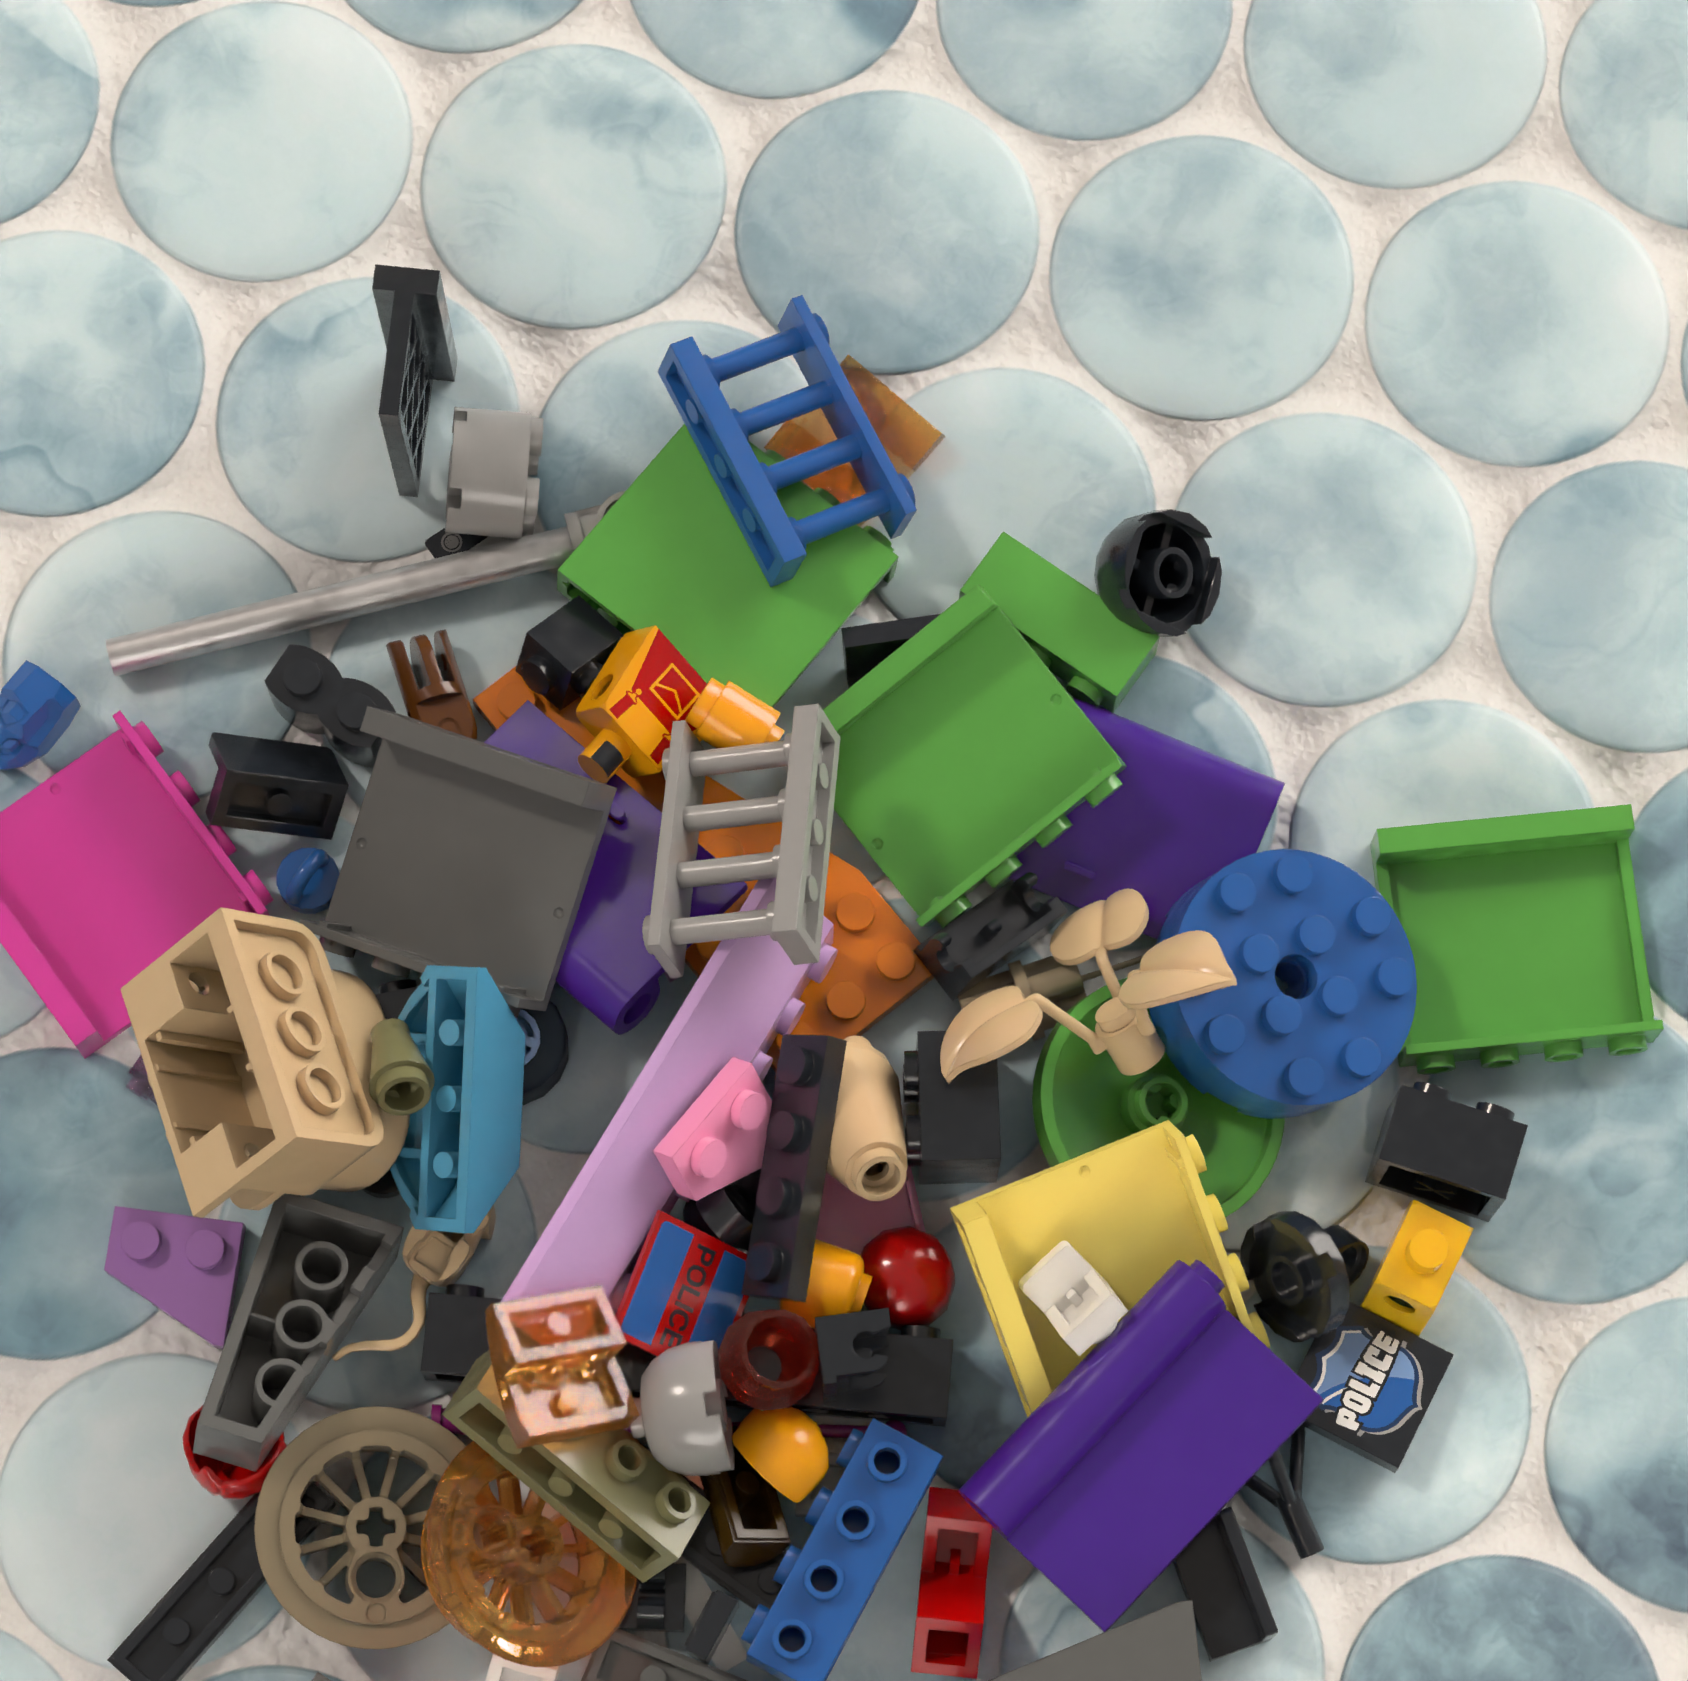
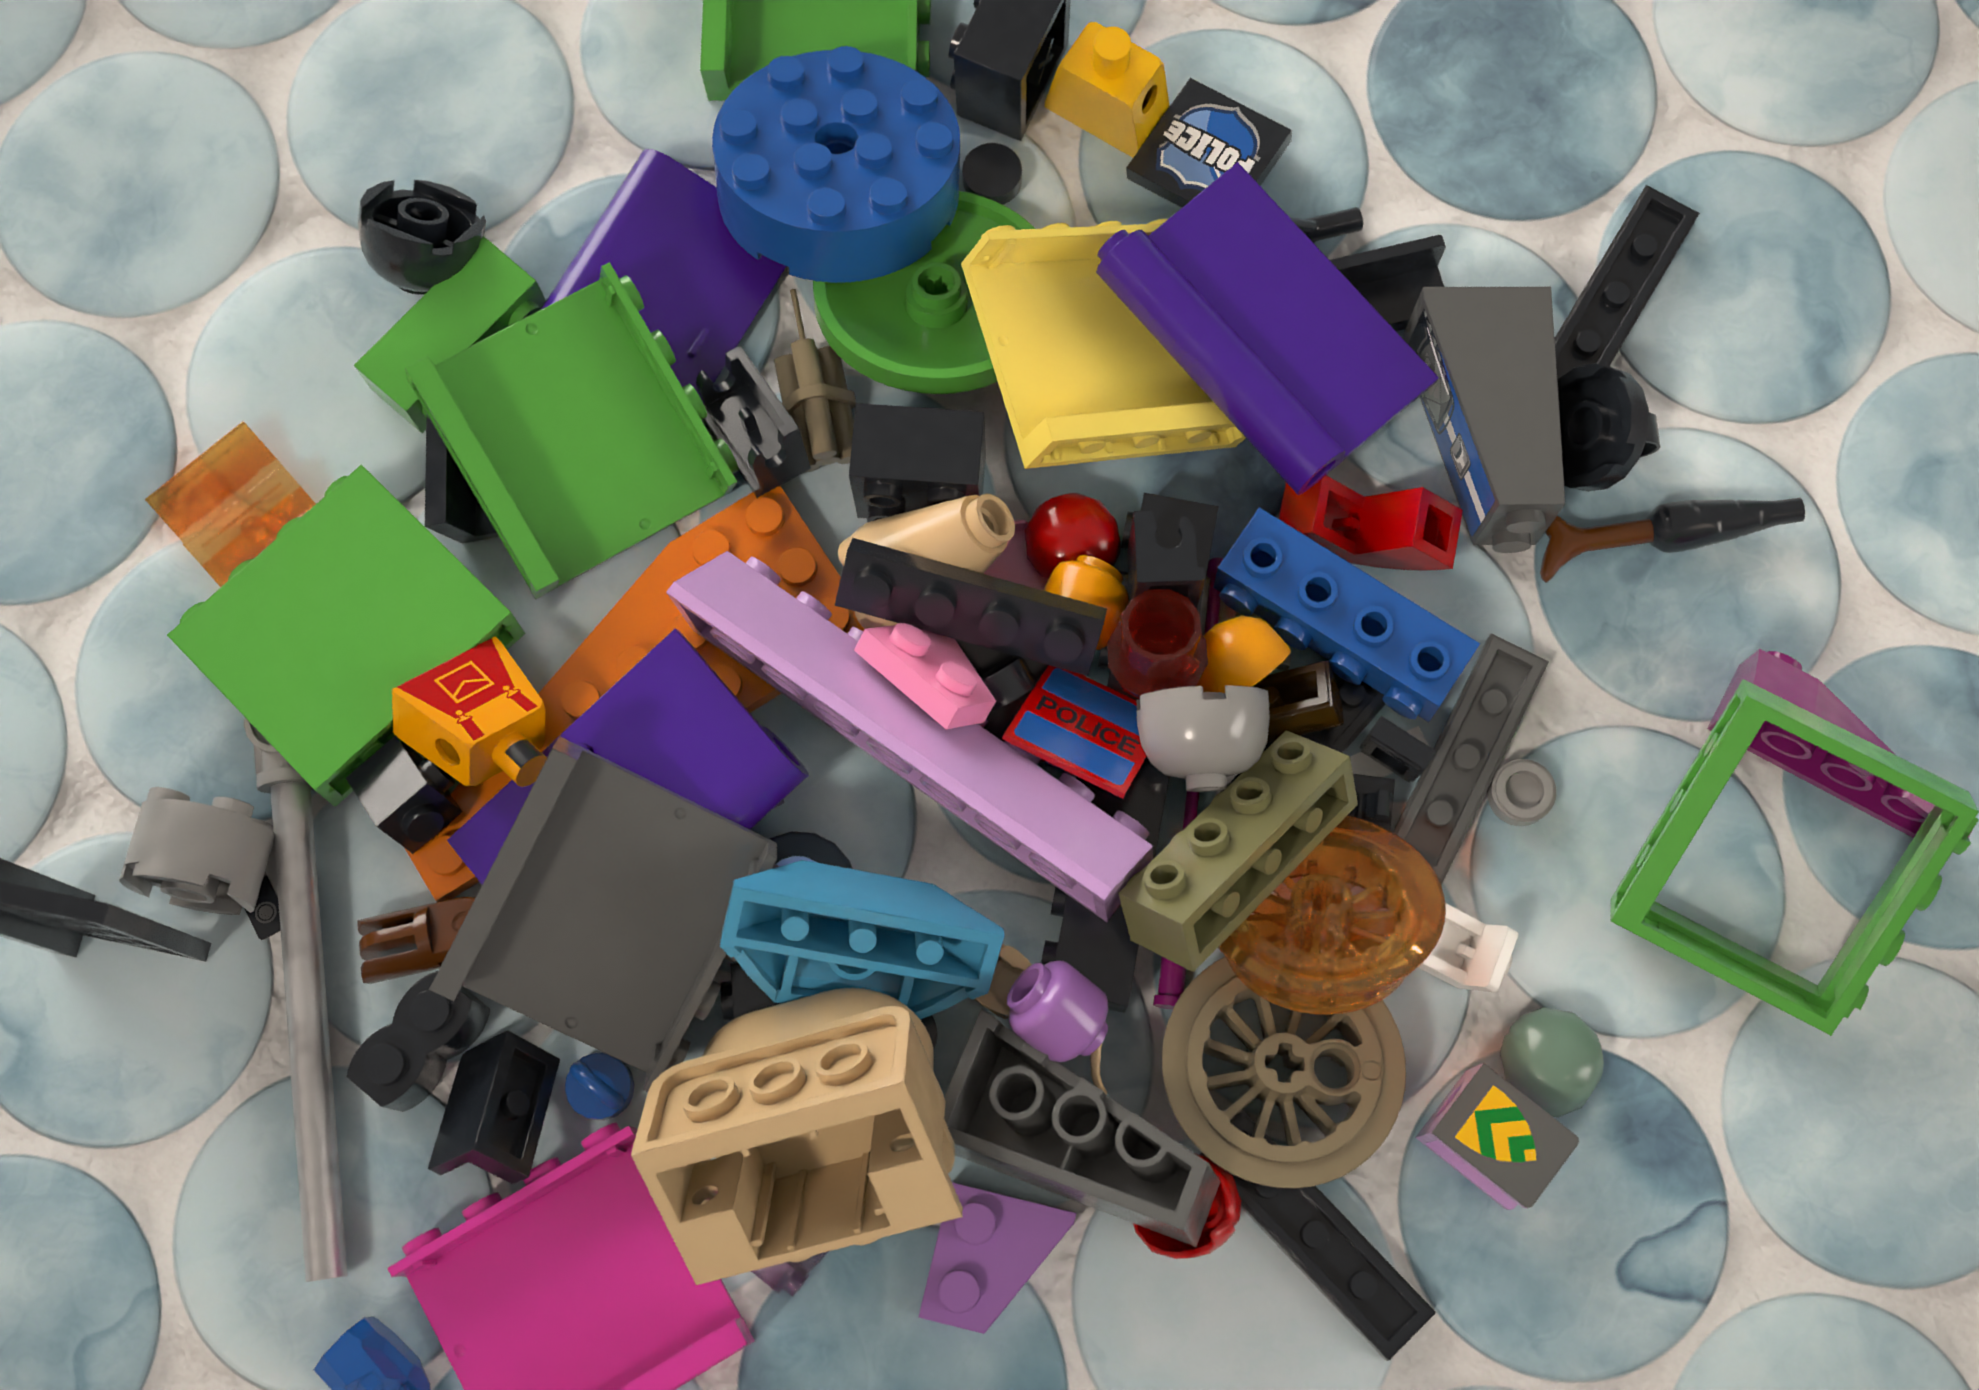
camera: 80 degrees left, 0 degrees up
(398, 1071) = (827, 987): olive cone -> none
(404, 1298) = (1058, 1011): none -> medium lavender head
(559, 1366) = (1160, 843): clear orange slope -> none
(733, 717) = (506, 623): light orange brick -> none
(752, 486) = (236, 599): blue fence -> none
(796, 862) = (667, 559): light grey fence -> none
(1073, 1297) = (1126, 363): white bracket -> none
(1167, 973) = (858, 391): tan plant -> none
(1302, 1273) = (1112, 179): black tile -> none
(1314, 1153) = (992, 172): none -> black tile

